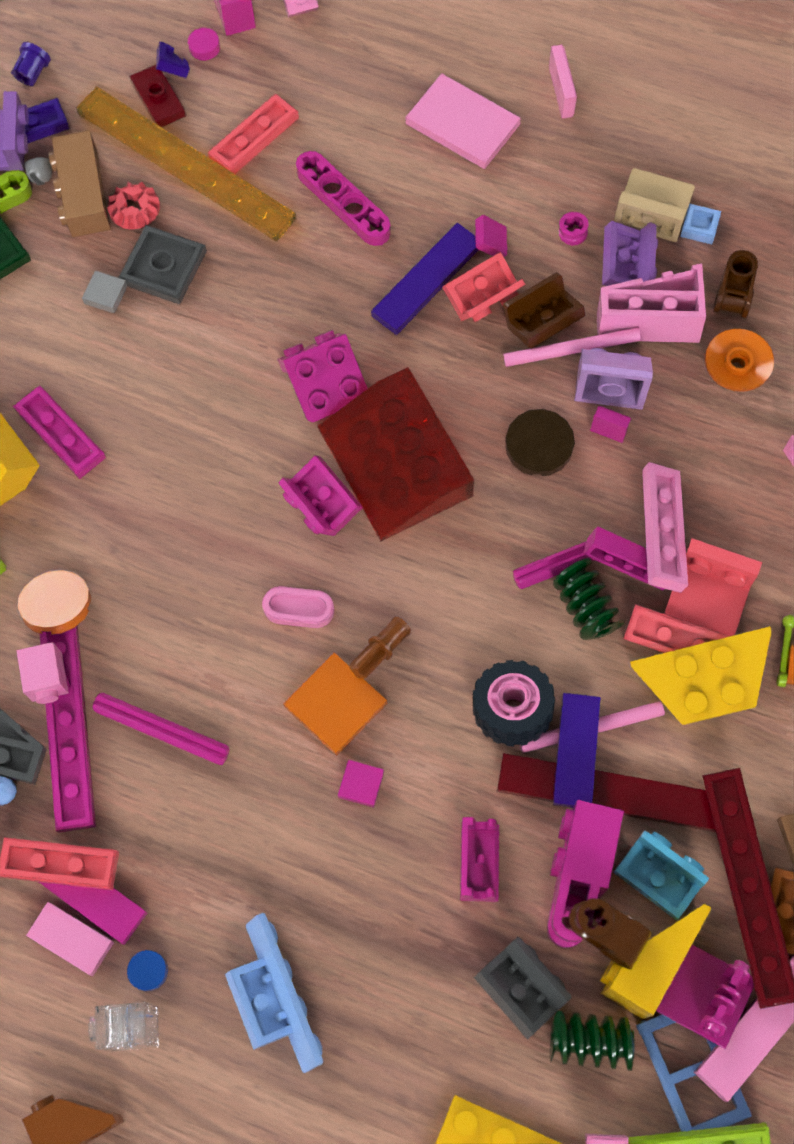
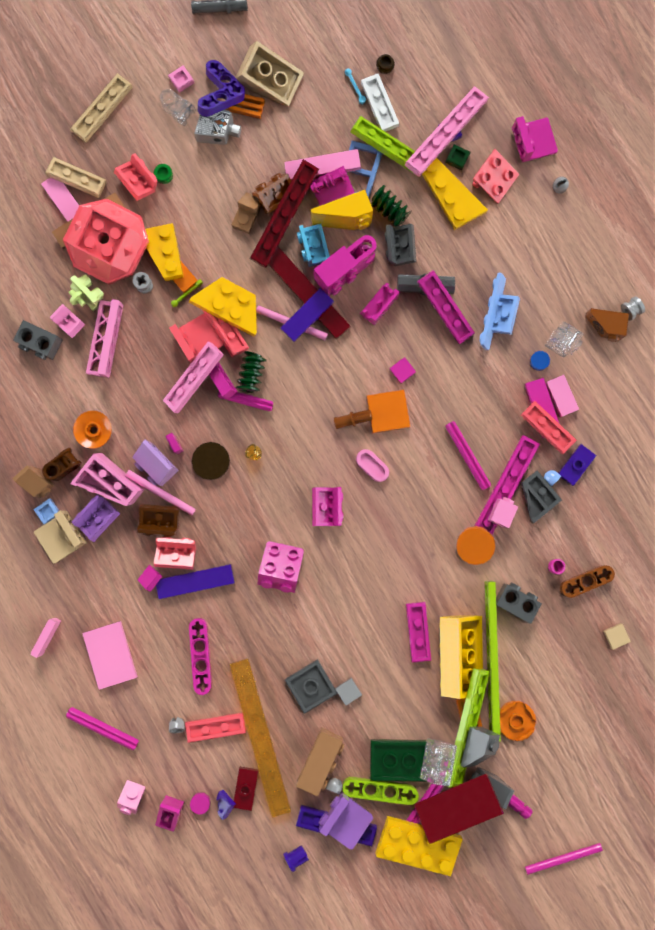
camera: 145 degrees left, 15 degrees up
(130, 216) = (308, 723): coral gear -> none
(306, 102) = (176, 725): none -> light grey hinge
(367, 932) = (445, 307): none -> dark pink tile
(396, 455) = (279, 501): clear red slope -> none
(399, 38) = (102, 728): none -> dark pink axle
(408, 967) = (409, 283): none -> dark grey piece
(488, 494) = (253, 452): none -> clear yellow hinge
(509, 723) = (306, 347): black wheel -> none
(578, 235) = (108, 549): dark pink bush -> none
(614, 935) = (357, 226): reddish brown piece -> none
(753, 232) = (33, 482): none -> medium nougat slope

